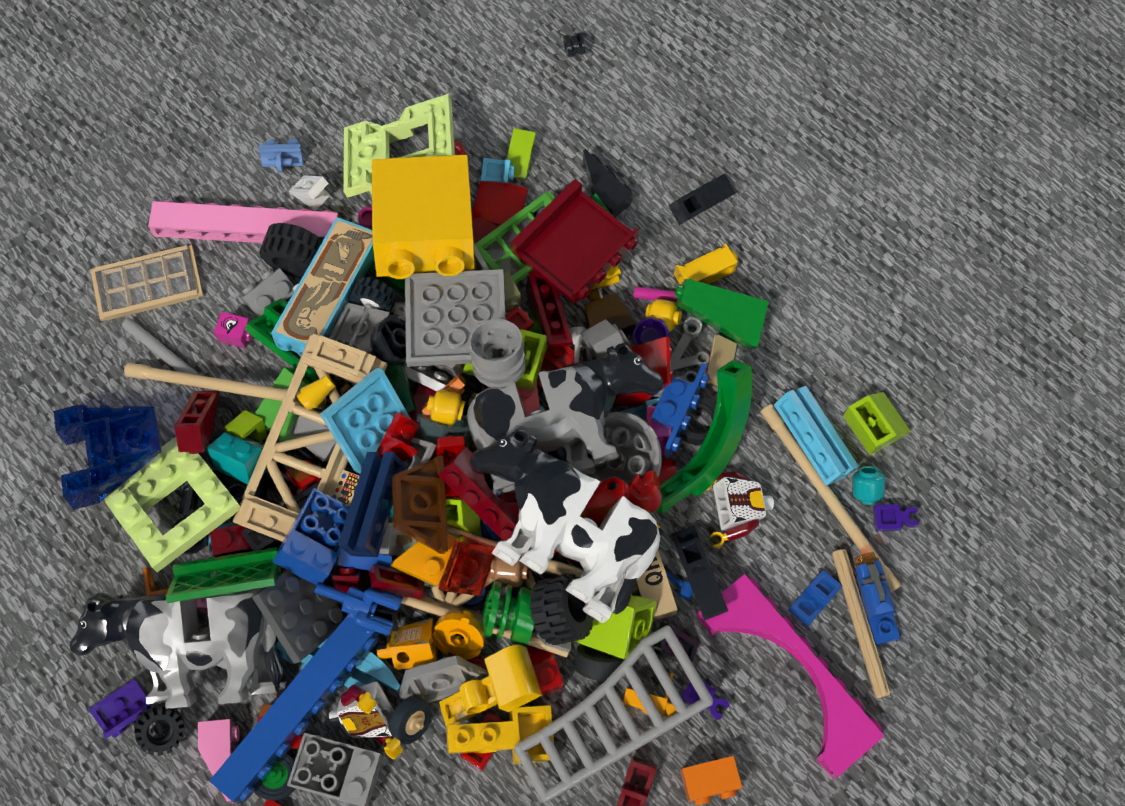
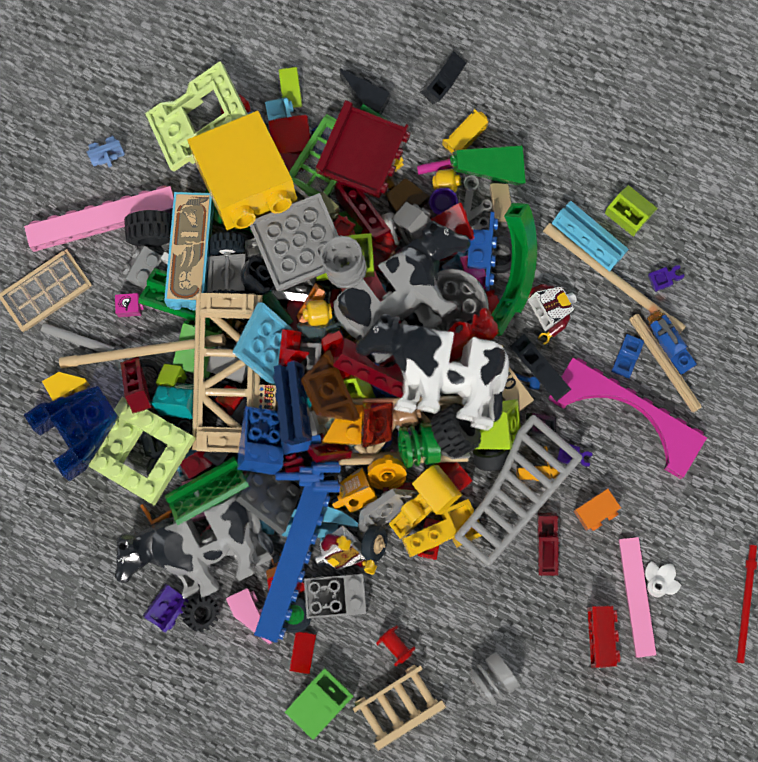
camera: 15 degrees left, 10 degrees up
(118, 393) = (64, 385): none -> yellow slope
(311, 191) = (140, 173): white slope -> none
(316, 392) = (219, 336): yellow cone -> none
(365, 217) = (193, 180): dark pink tile -> none
(868, 485) = (640, 260): teal head -> none

